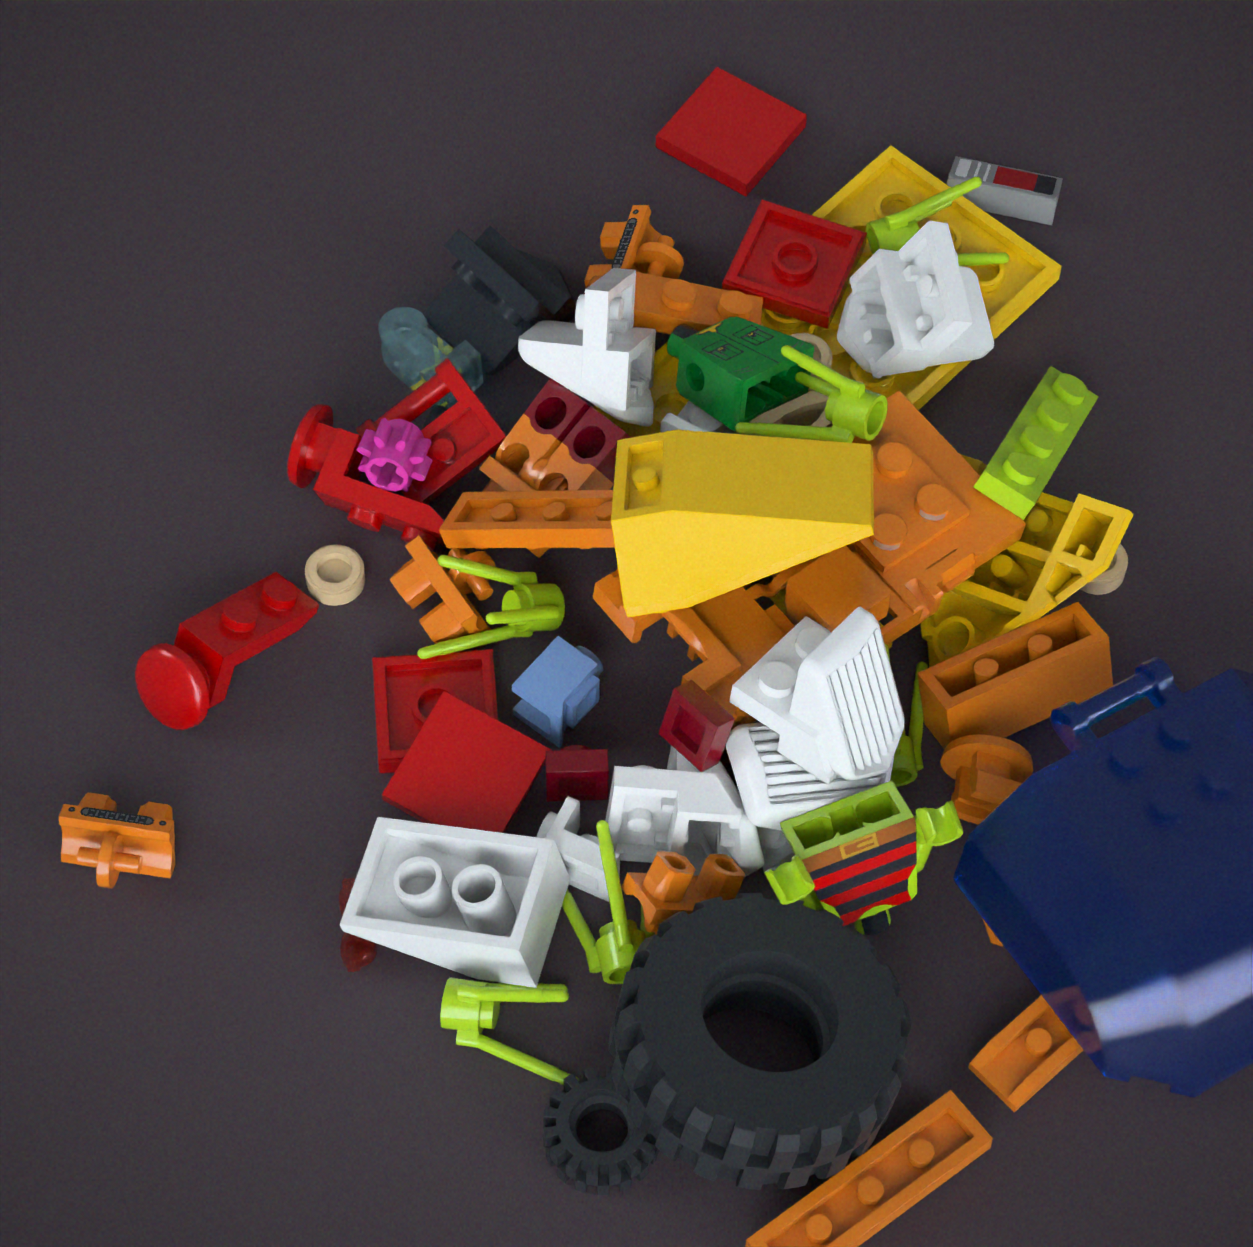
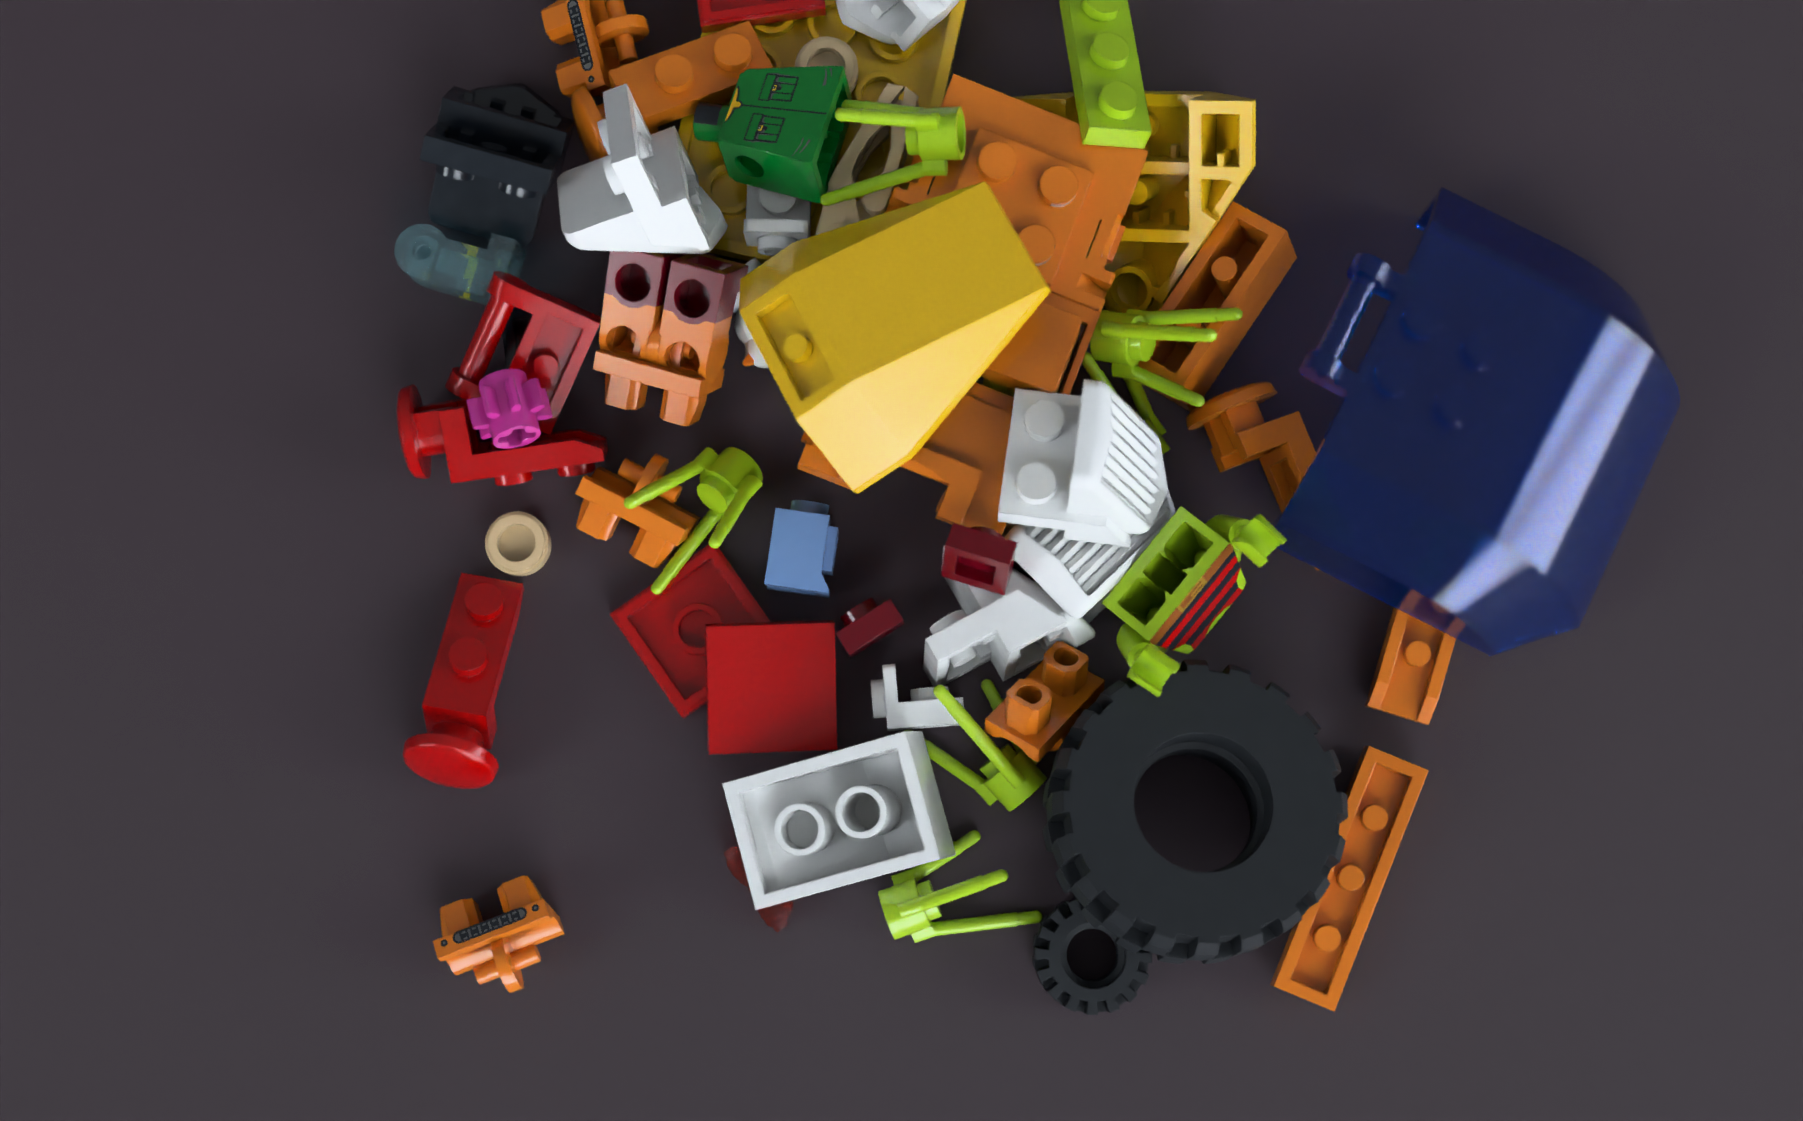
camera: 30 degrees left, 25 degrees up
(530, 520) = (689, 412): orange plate -> none
(929, 651) = (1133, 335): none -> lime plant

